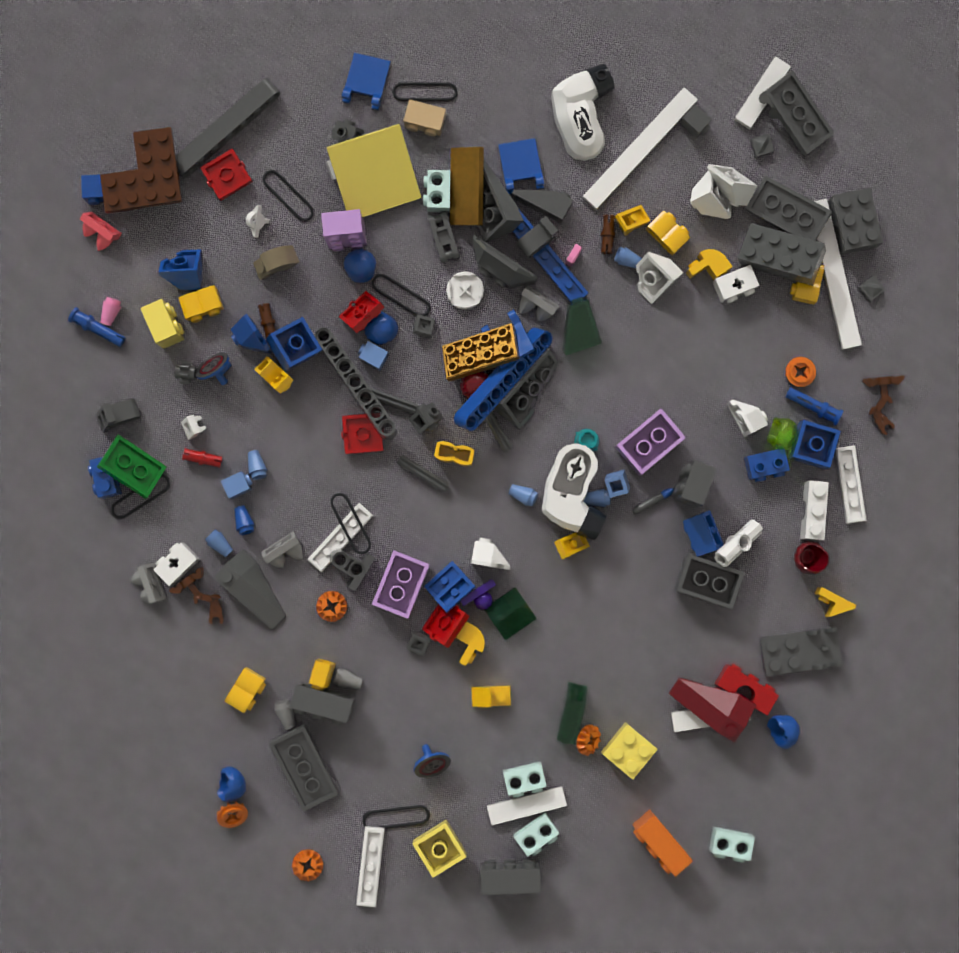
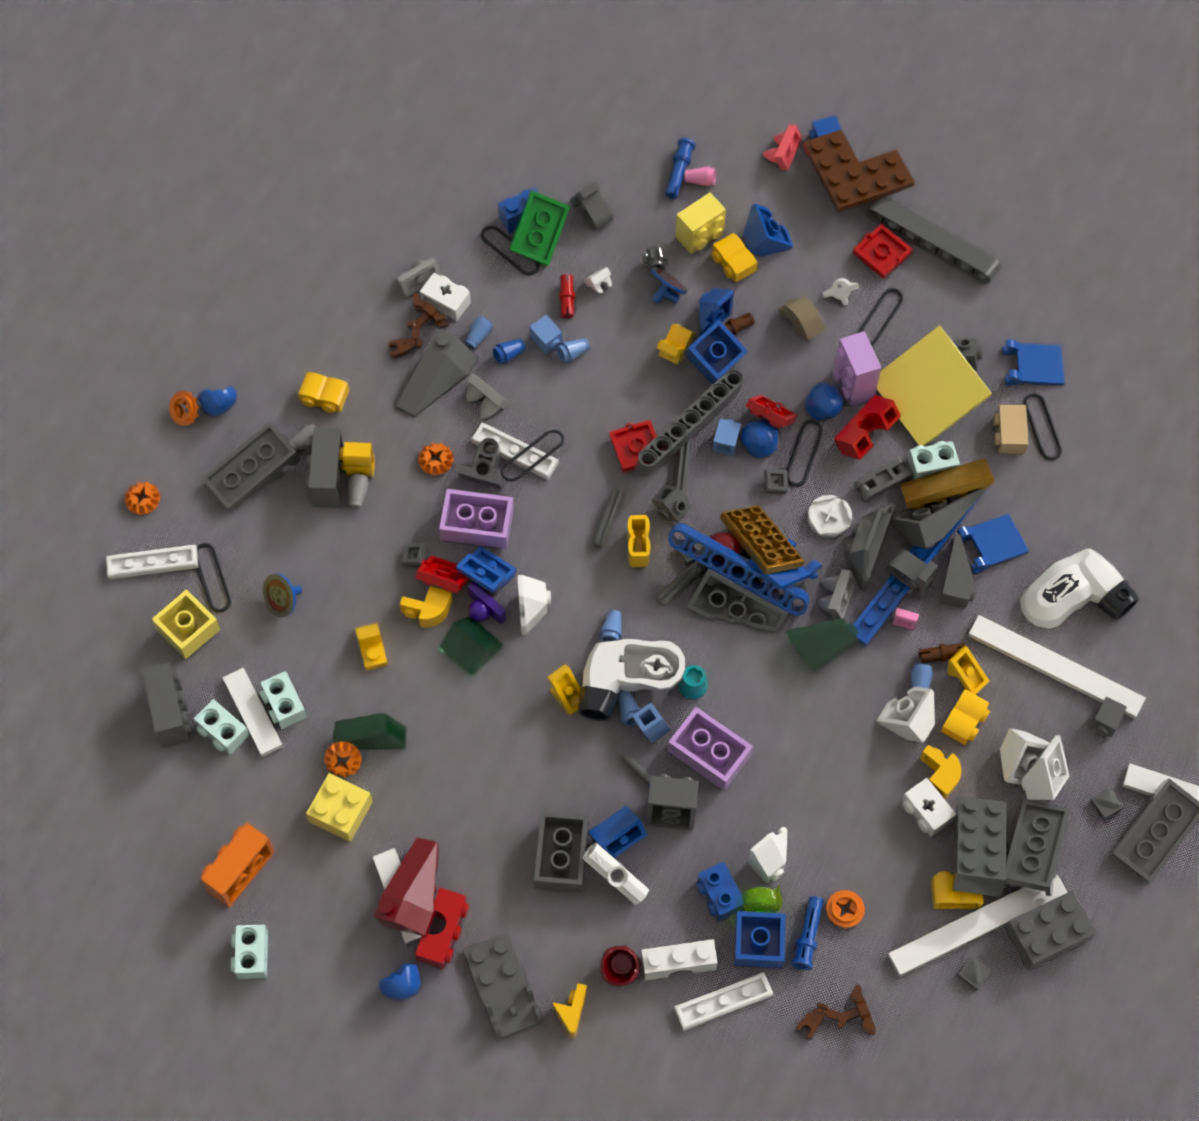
camera: 75 degrees right, 20 degrees down
(384, 225) = (876, 414): none -> red arch

